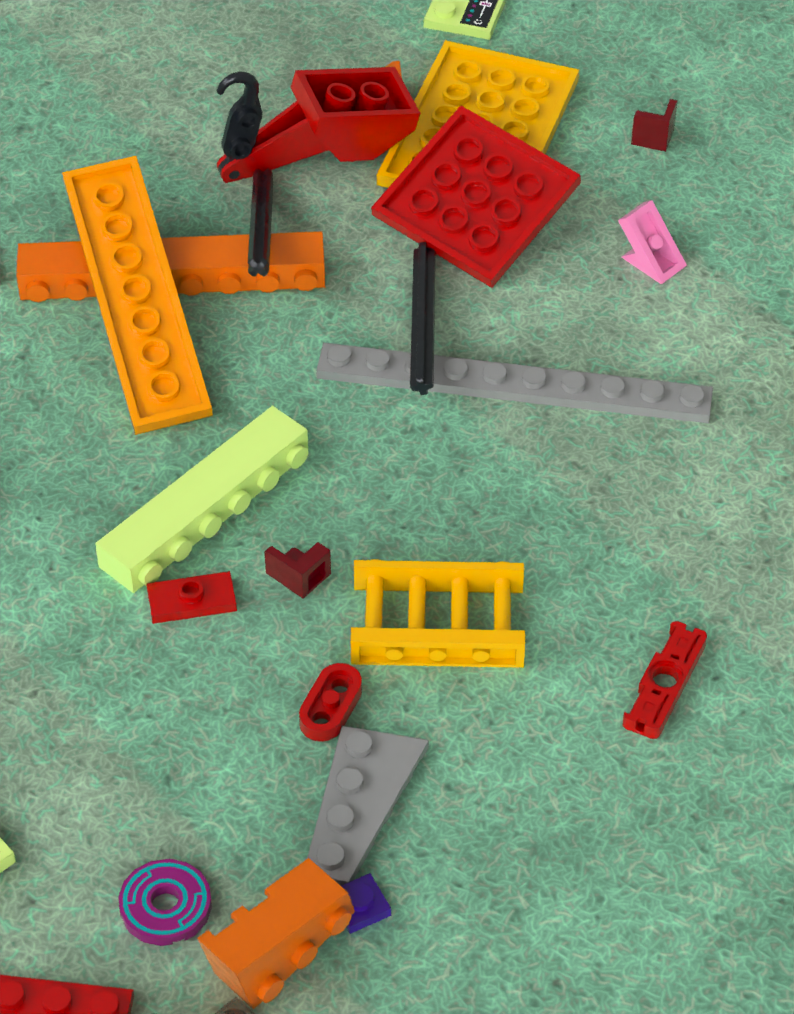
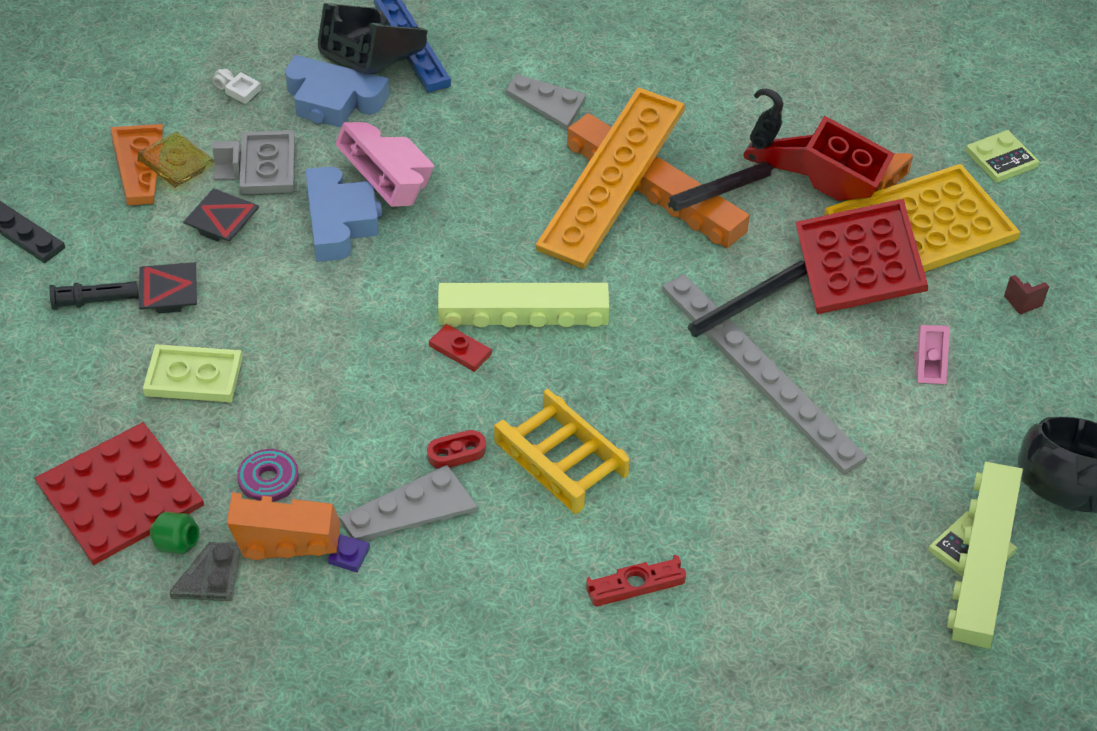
camera: 45 degrees right, 0 degrees up
(299, 570) = (525, 376): dark red panel -> none

